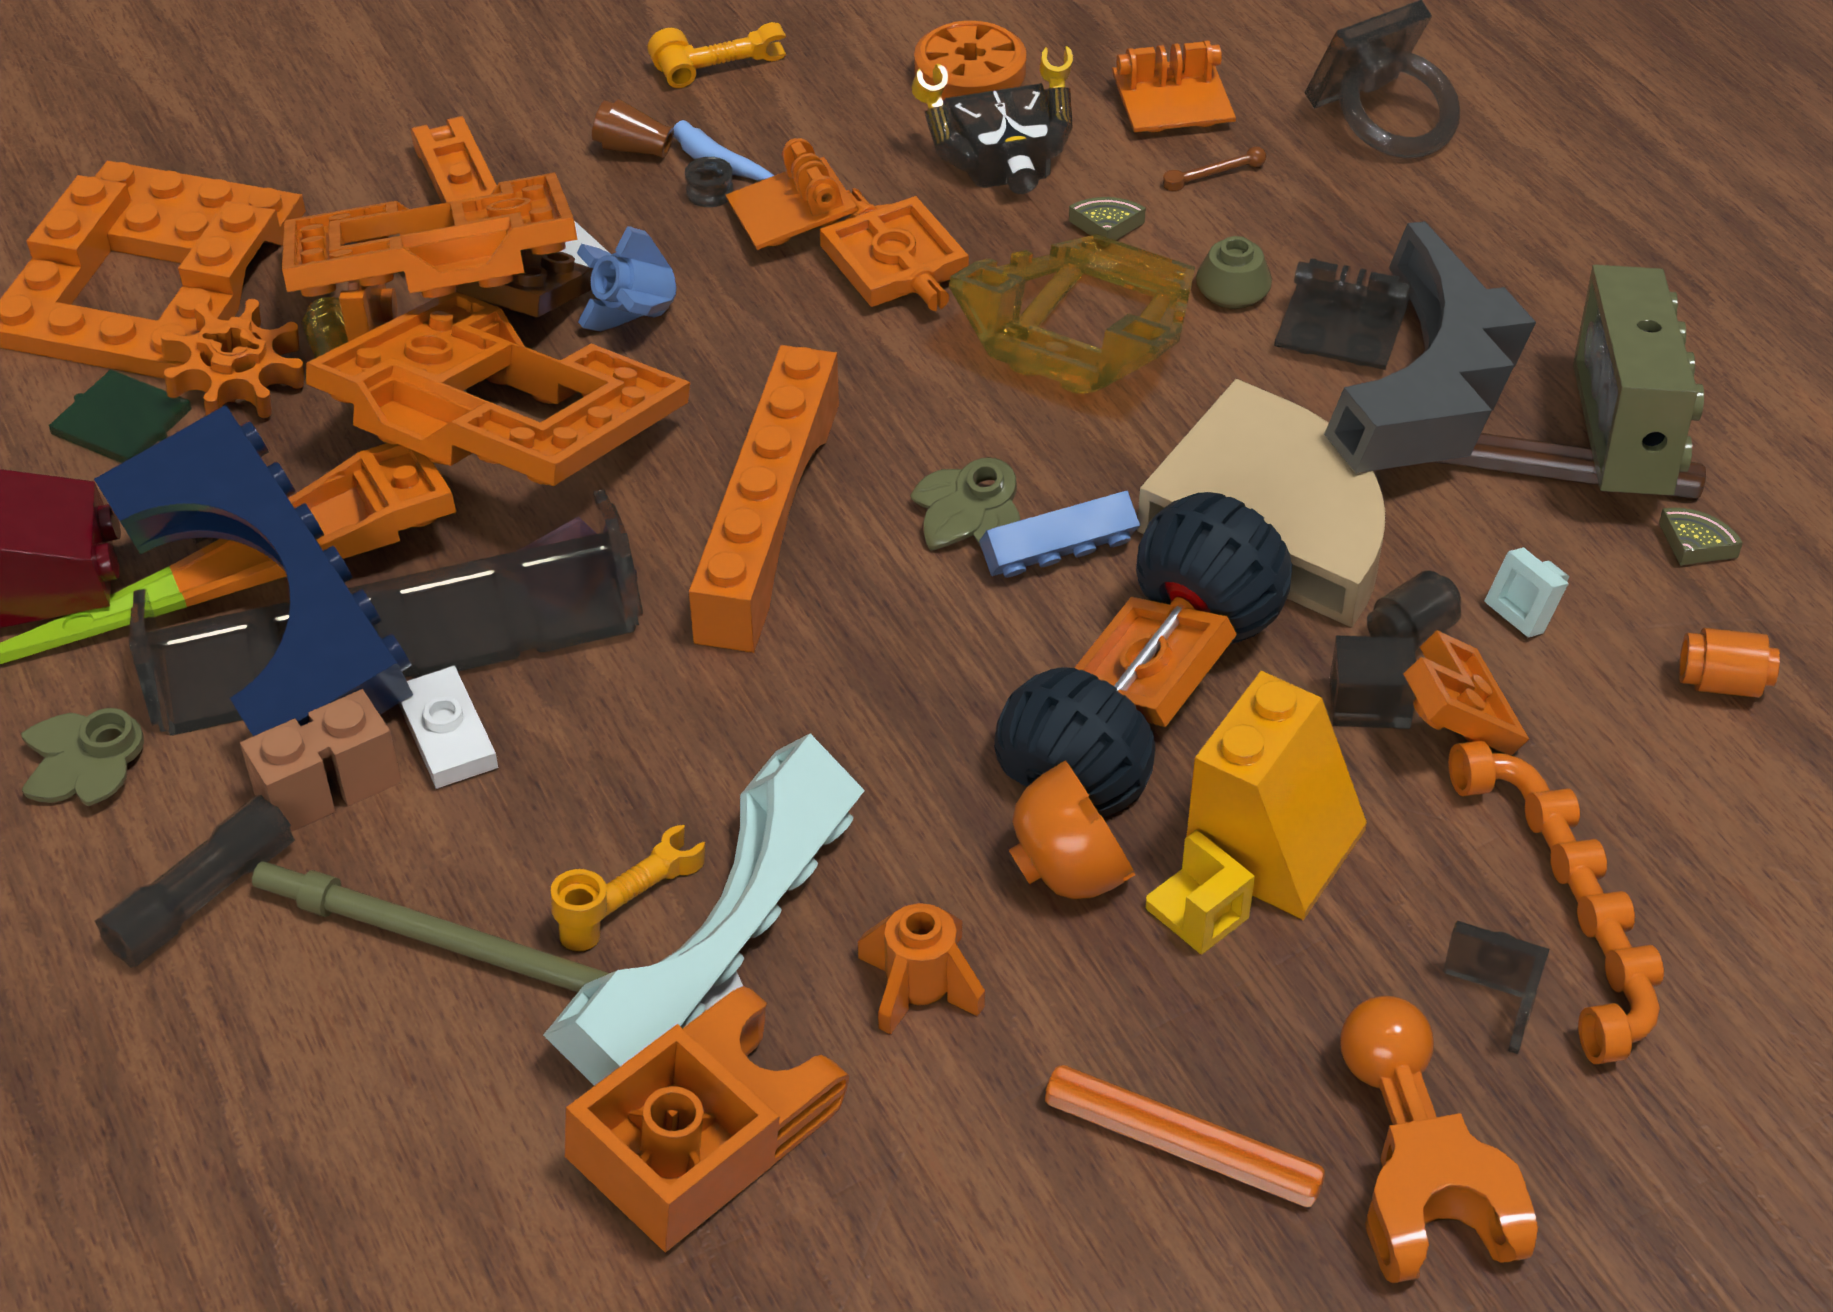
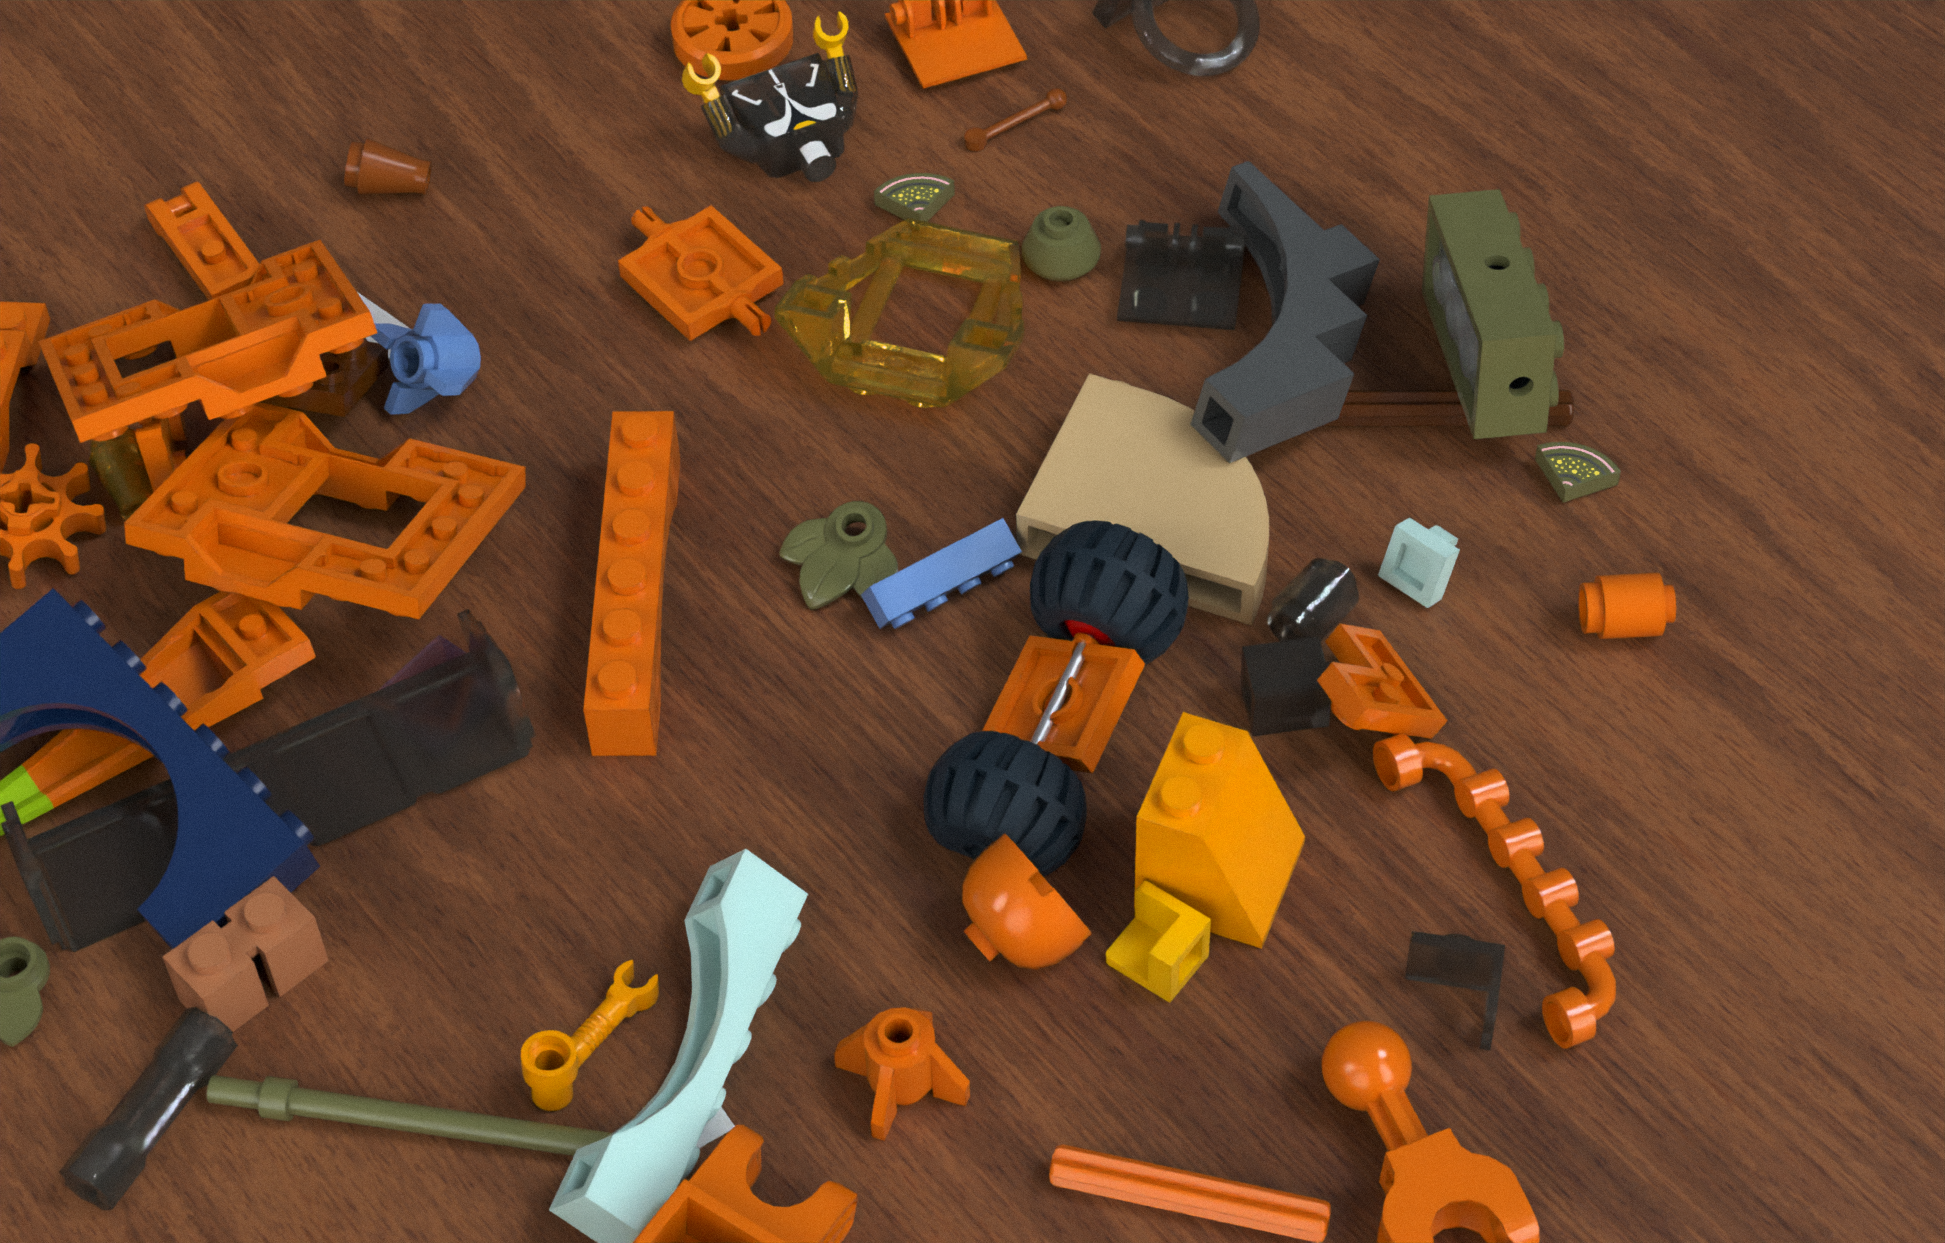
camera: 10 degrees left, 5 degrees up
(447, 728) = (363, 895): white plate -> none
(680, 60) = (417, 74): light orange brick -> none
(700, 145) = (486, 187): light blue animal -> none
(708, 181) = (482, 204): clear smoke bush -> none
(793, 200) = (579, 228): orange hinge -> none

